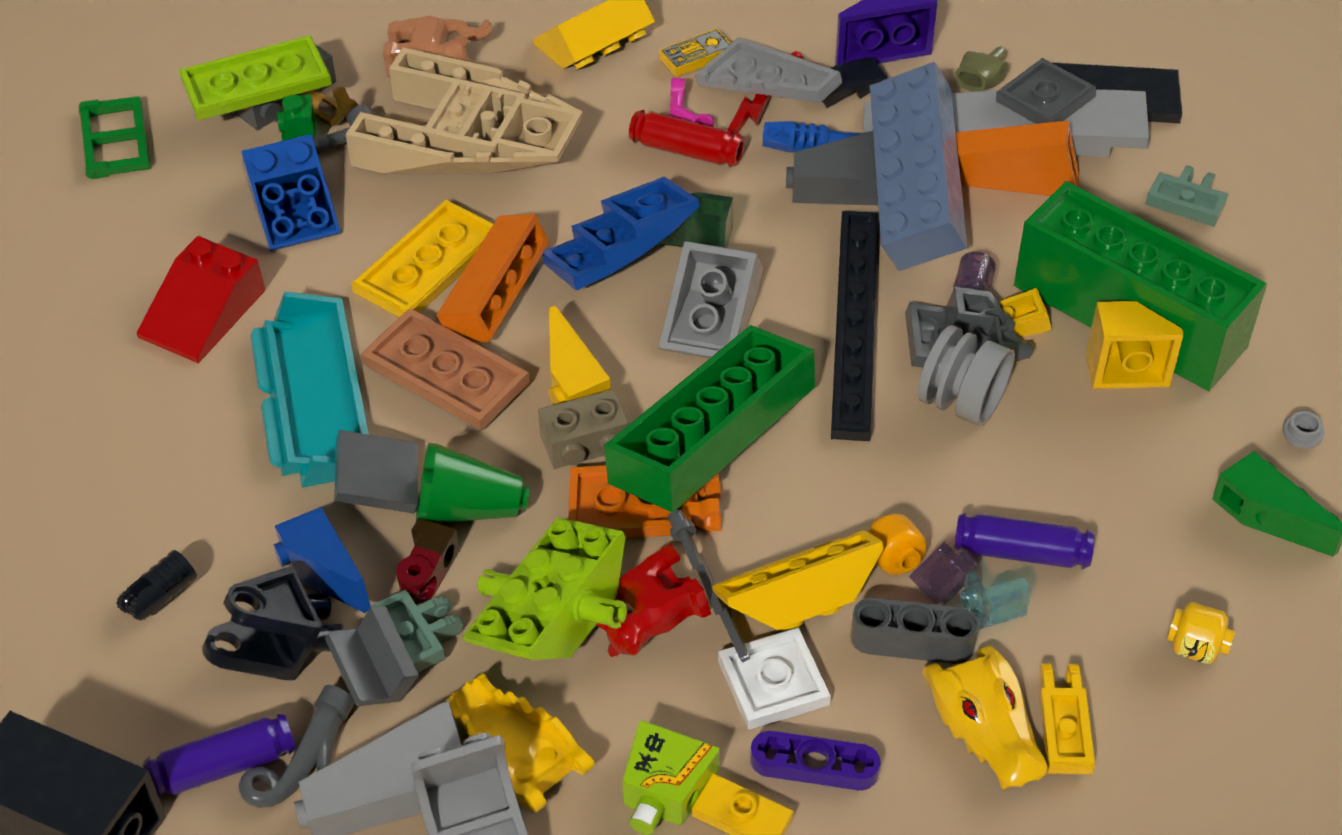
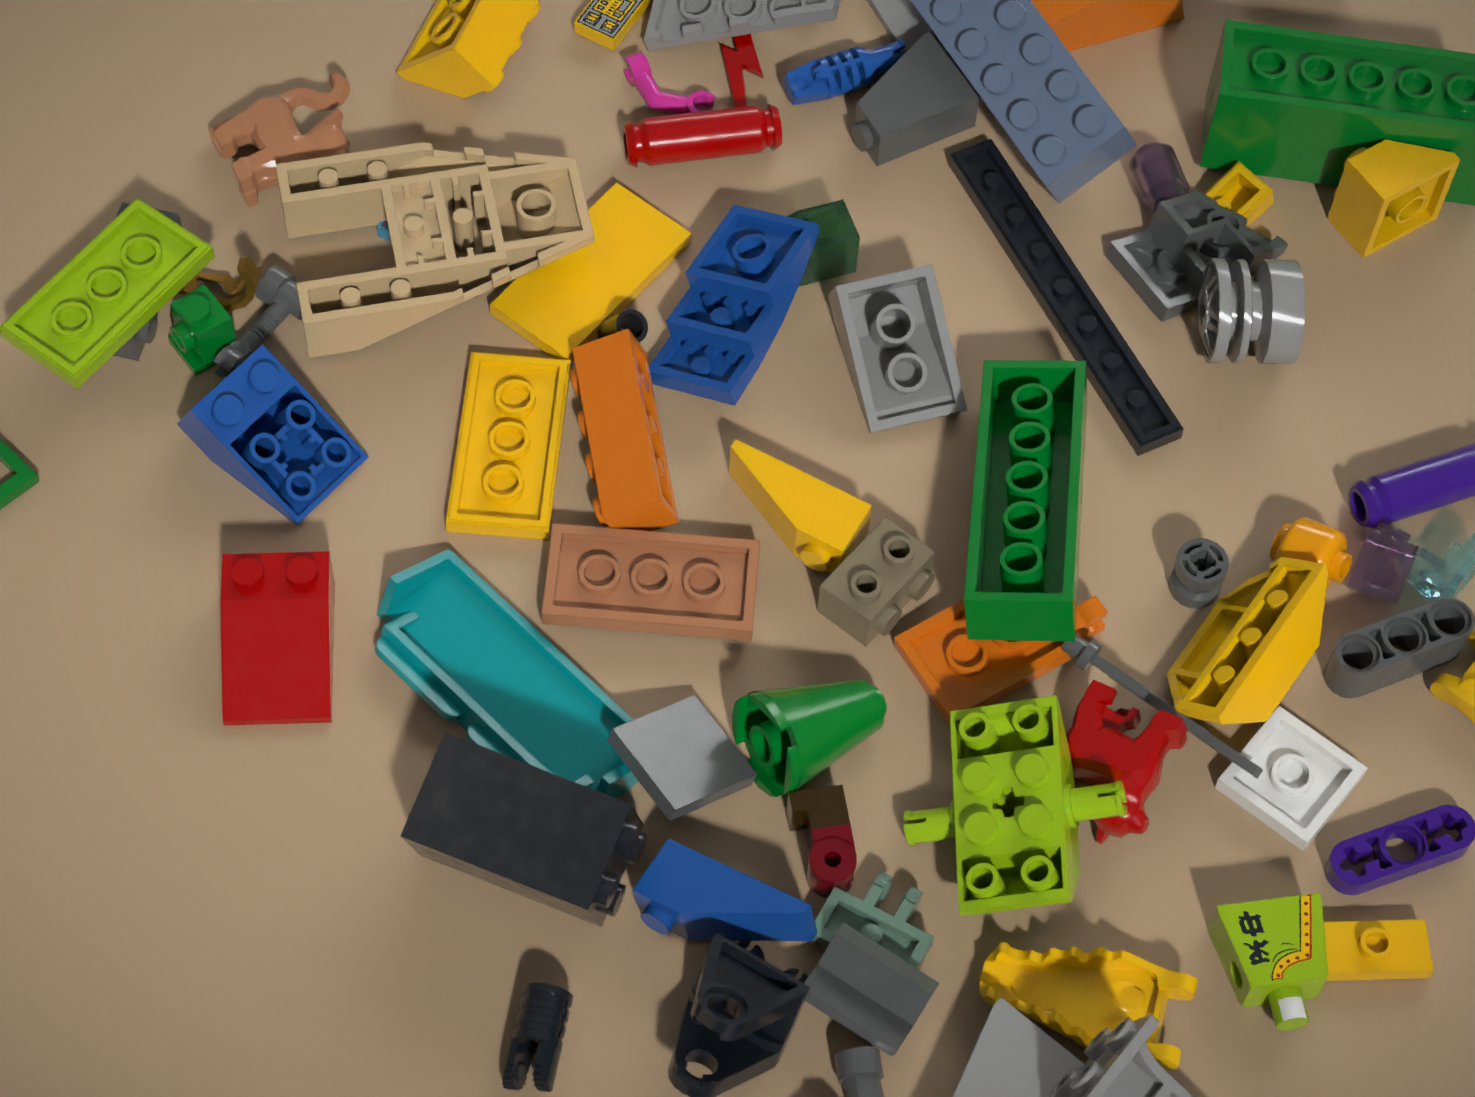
camera: 35 degrees left, 10 degrees up
(235, 459) = (525, 830): none -> black brick
(550, 215) = (627, 319): none -> black hinge
(557, 188) = (573, 295): none -> yellow tile
(806, 520) = (1198, 573): none -> dark grey wheel

